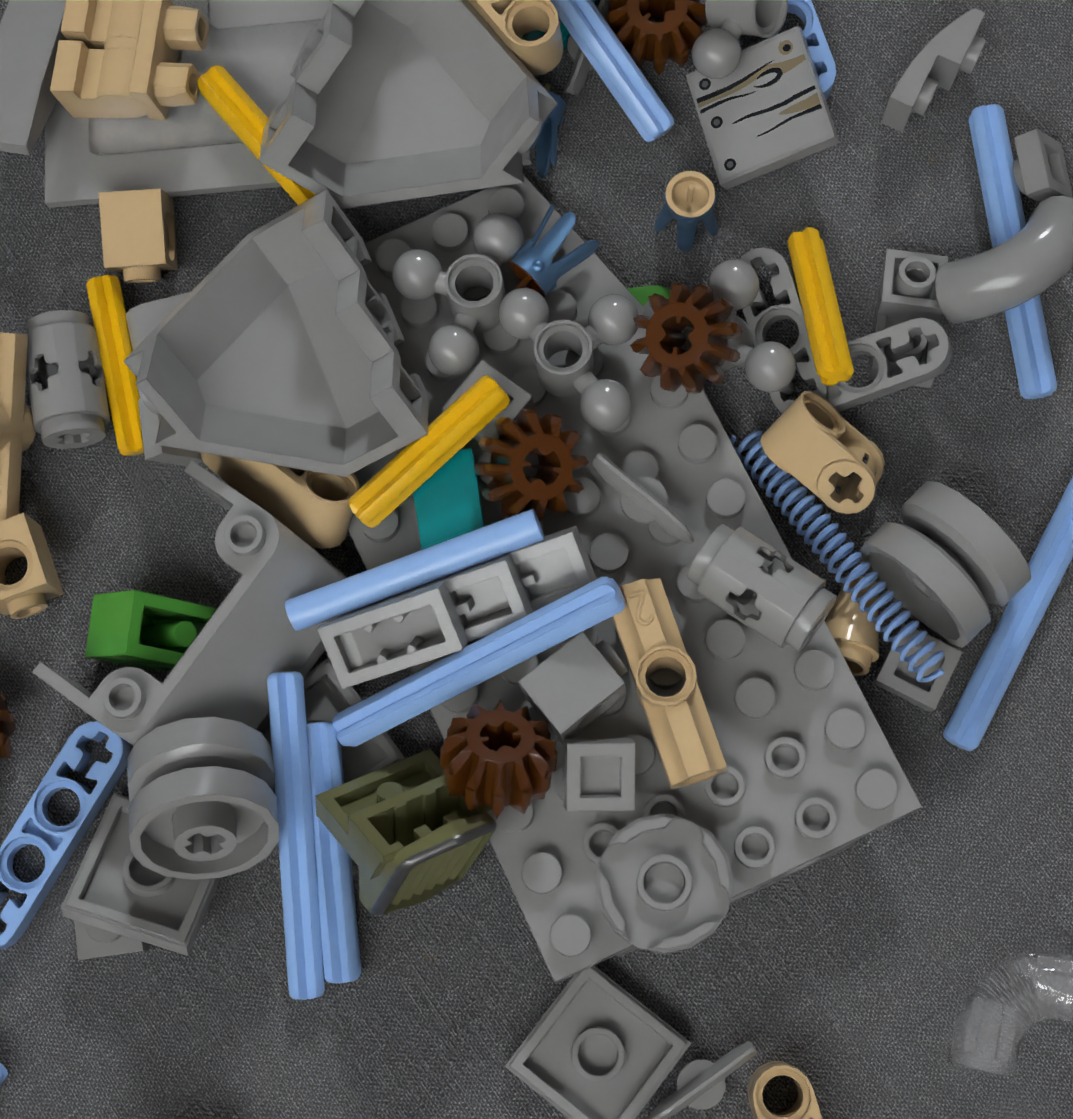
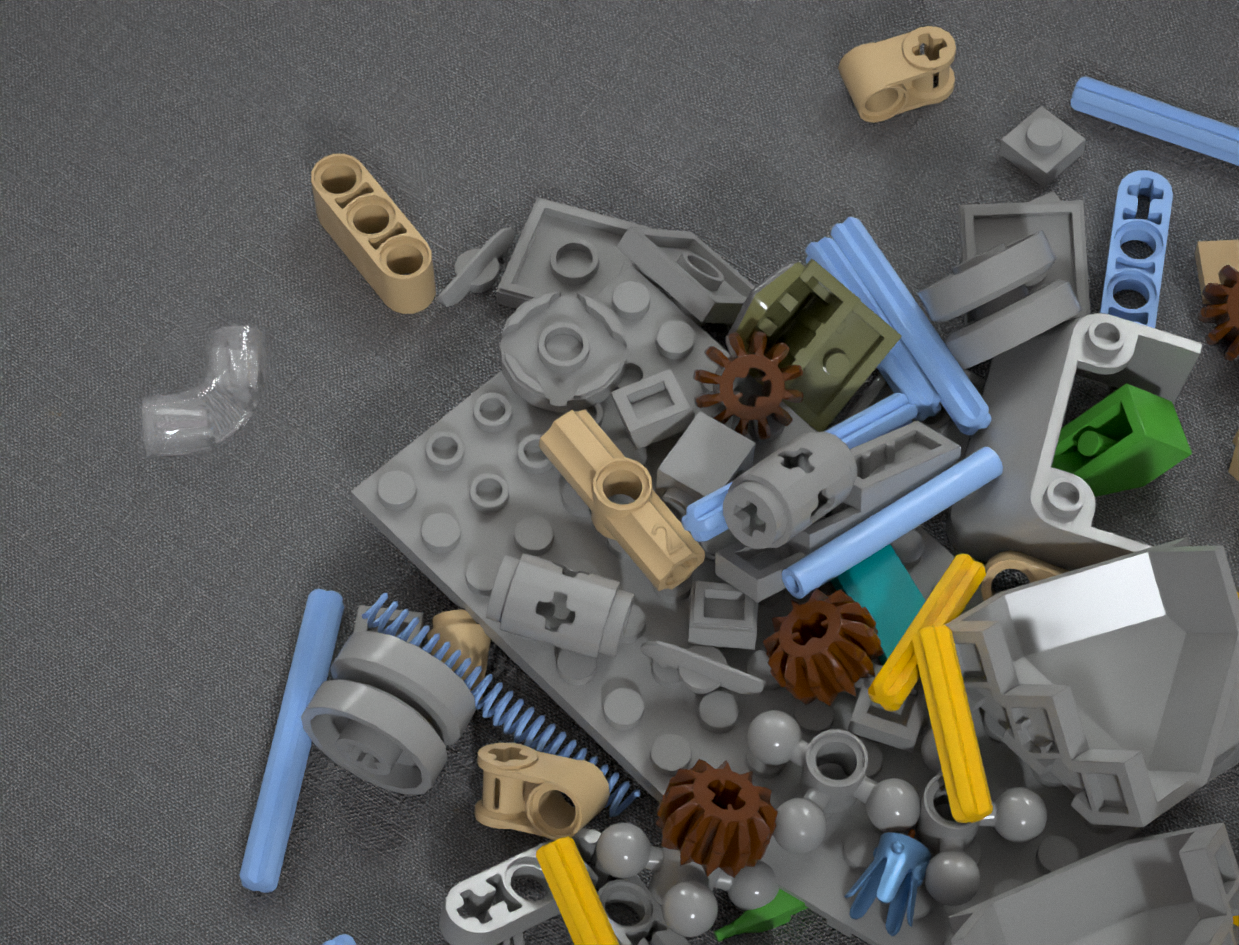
camera: 155 degrees right, 20 degrees down
(61, 1029) = (1042, 146): none -> light grey plate
(450, 334) = (952, 724): none -> yellow axle
(475, 604) = (789, 490): none -> light grey piece
(487, 965) = (689, 271): none -> light grey plate
(611, 540) = (721, 616): none -> light grey tile

